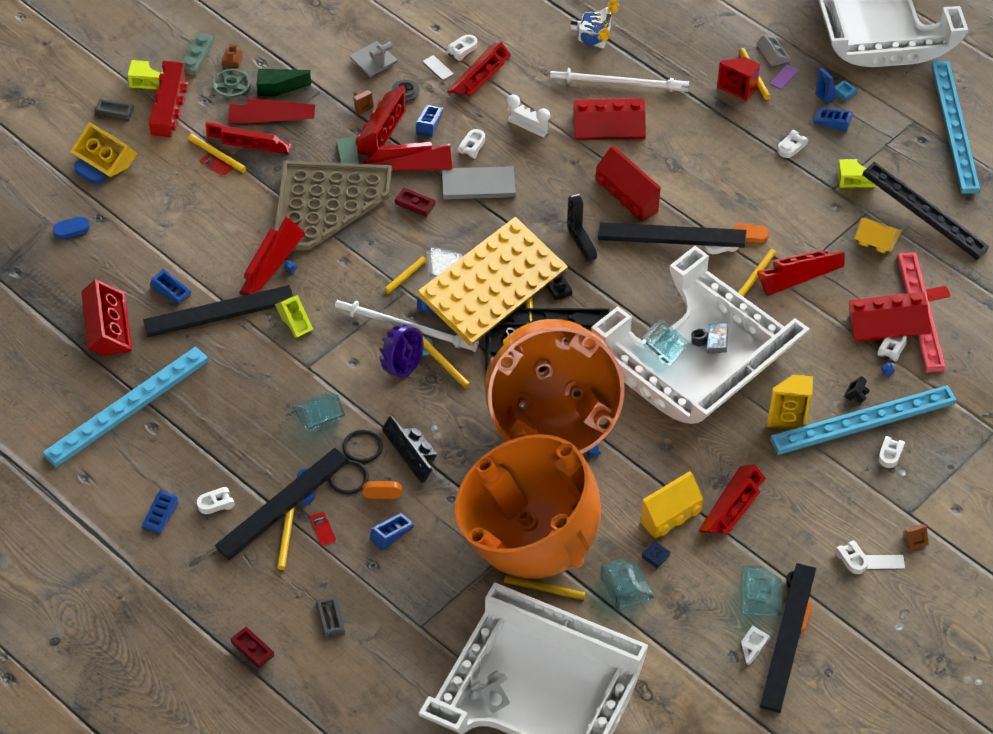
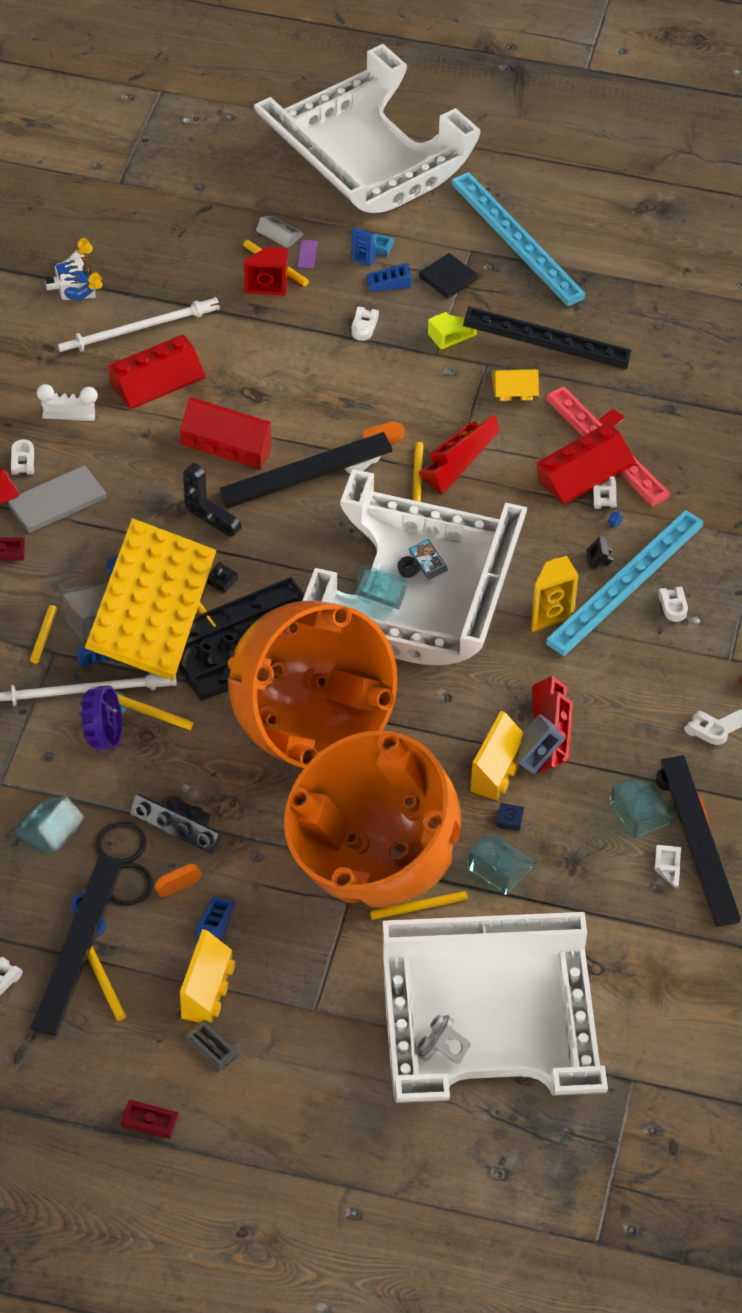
camera: 30 degrees left, 0 degrees up
(322, 528) = (137, 953): red sticker -> none
(352, 567) = (206, 979): none -> yellow slope
(708, 509) = (538, 743): none -> sand blue slope
(881, 133) = (448, 275): none -> black tile

